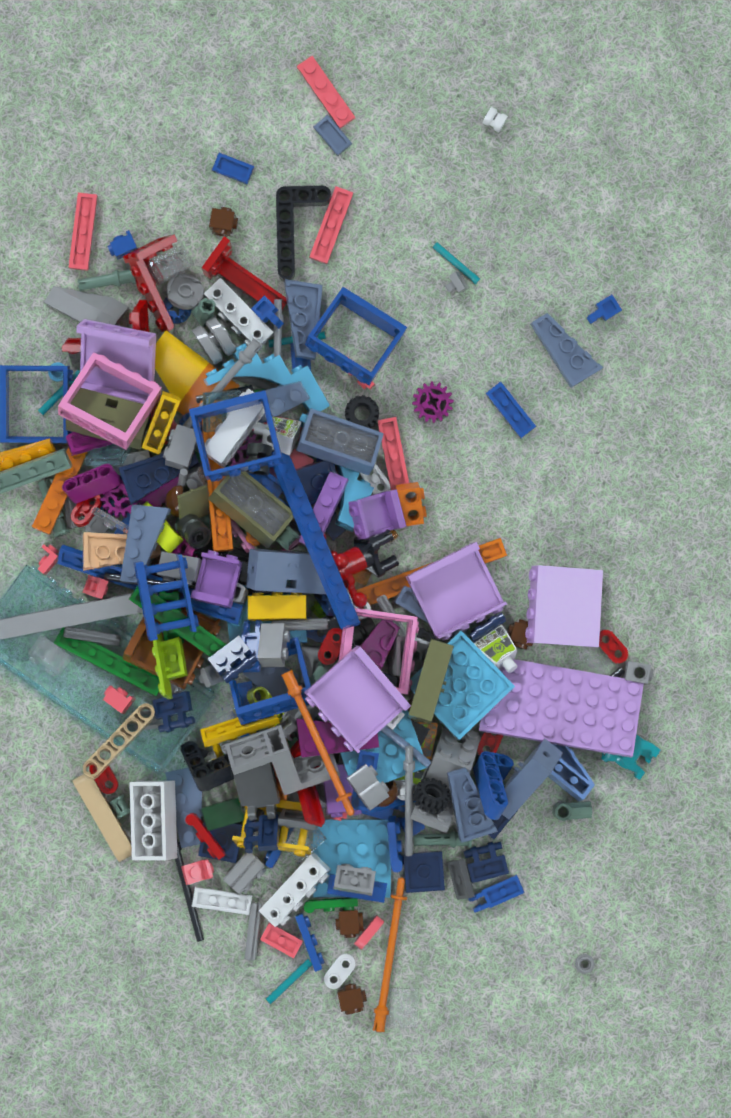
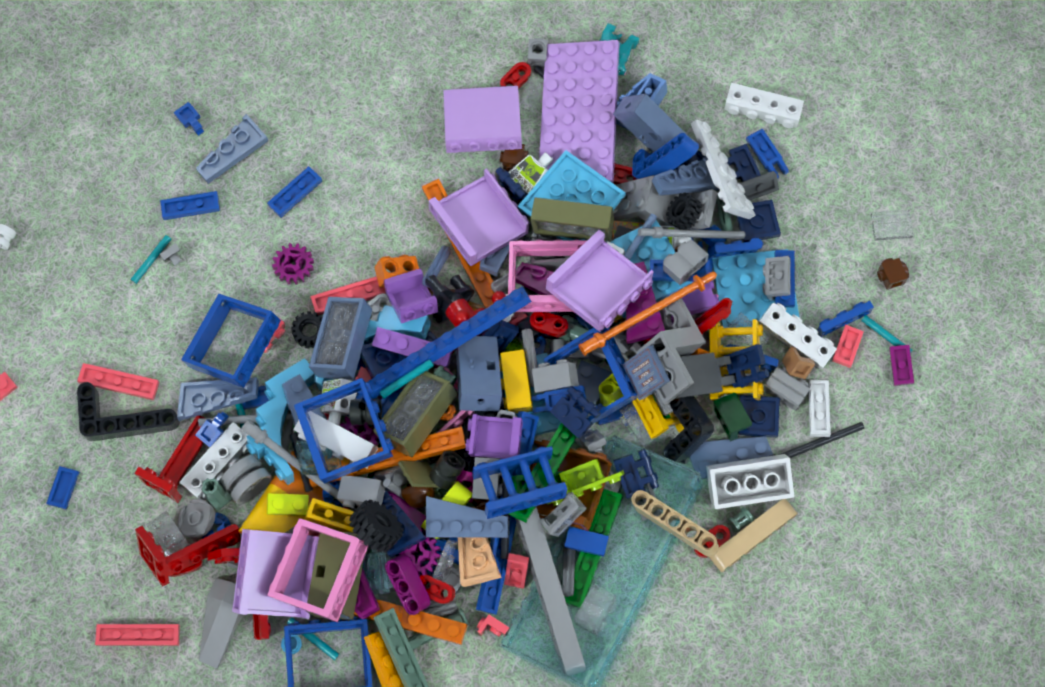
camera: 90 degrees left, 15 degrees down
(113, 656) = (586, 541): none -> blue tile
(116, 278) = (186, 593): sand green pin -> none
(118, 699) = (630, 533): coral brick -> none
(122, 245) = (151, 589): blue brick -> none
(135, 635) = (563, 515): none -> light grey hinge
(136, 449) = (376, 526): none -> black tyre
(184, 378) = (287, 504): none -> neon yellow plate
(197, 871) = (794, 434): coral bracket -> none
(203, 834) = (756, 428): red plate -> none
(223, 221) = (119, 489): reddish brown brick -> none
(253, 931) = (844, 374): light grey axle -> none
(254, 989) = (901, 365): none -> magenta plate
(256, 731) = (646, 372): none -> sand blue tile
(264, 884) = (797, 365): none -> medium nougat panel
(285, 501) = (407, 378): none -> teal bar
(294, 818) = (727, 335): dark grey plate -> none
(330, 904) = (804, 304): green plate -> none
(332, 135) = (24, 392): sand blue tile -> none
(339, 971) = (867, 289): white plate -> none
(350, 923) = (819, 283): reddish brown brick -> none
(368, 932) = (825, 264): coral beam -> none
(381, 1010) = (898, 245): orange bar -> none
(412, 544) = (437, 263): none -> sand blue axle
(471, 841) = (722, 175): none -> white wing
(508, 305) = (190, 205): none -> blue plate
(550, 899) = (763, 105): none -> white brick
(575, 810) = (677, 95): sand green piece -> none
(589, 968) = (819, 66): light grey plate -> none

